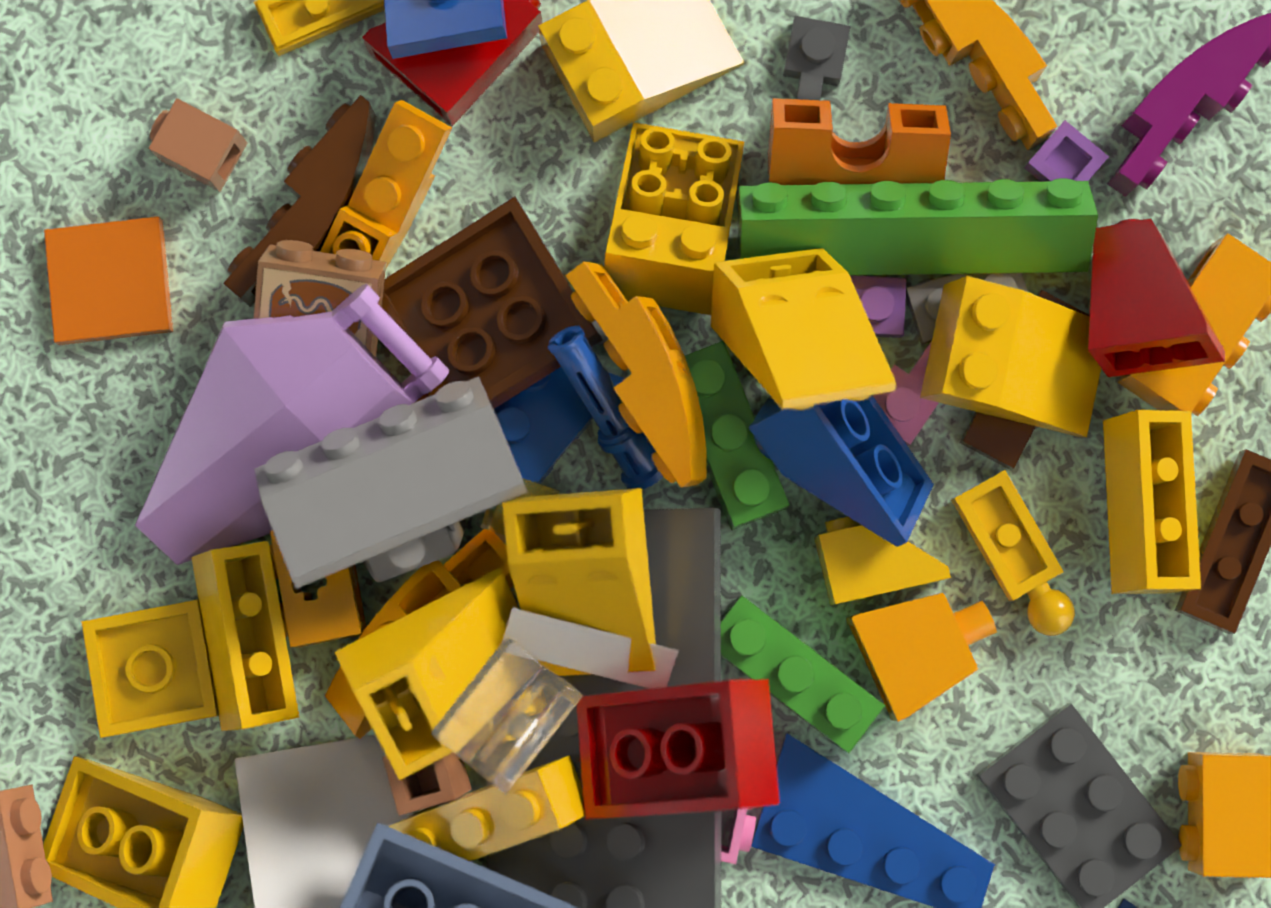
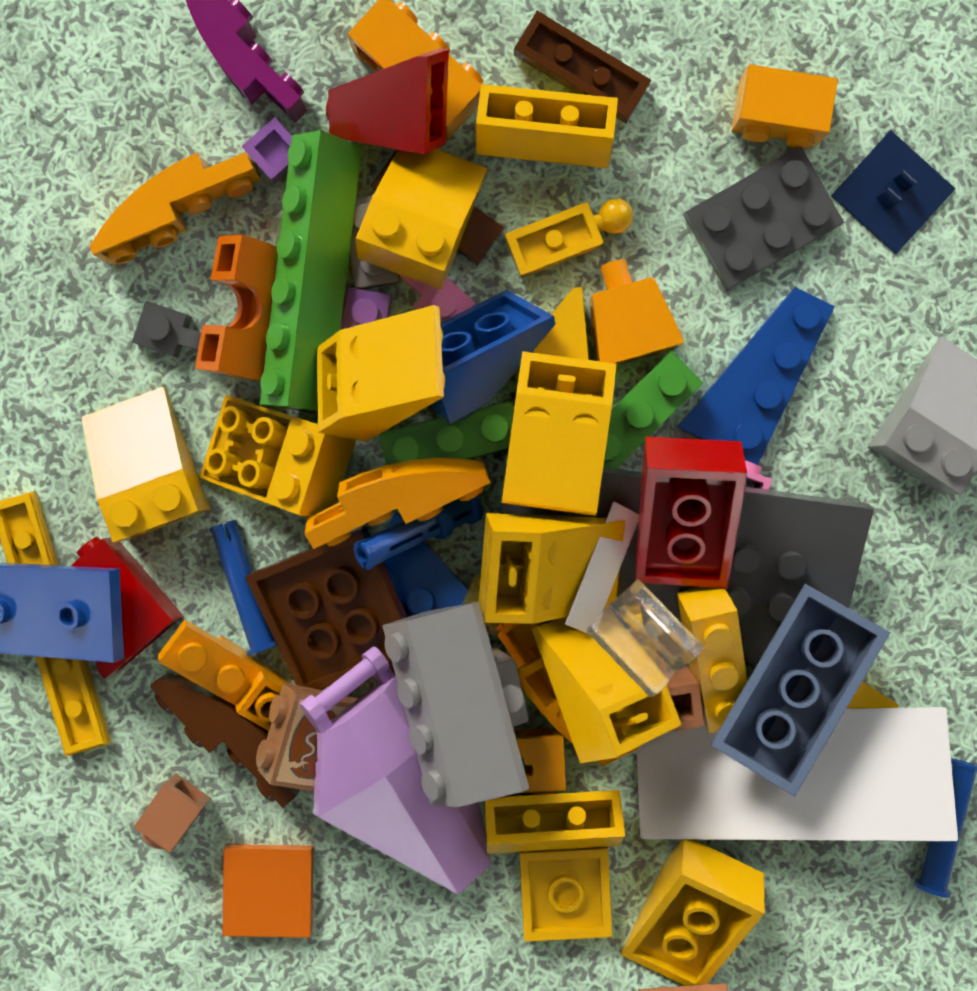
camera: 85 degrees left, 5 degrees up
(524, 184) = (236, 567): none -> blue pin
(756, 567) = (559, 433): none -> yellow slope

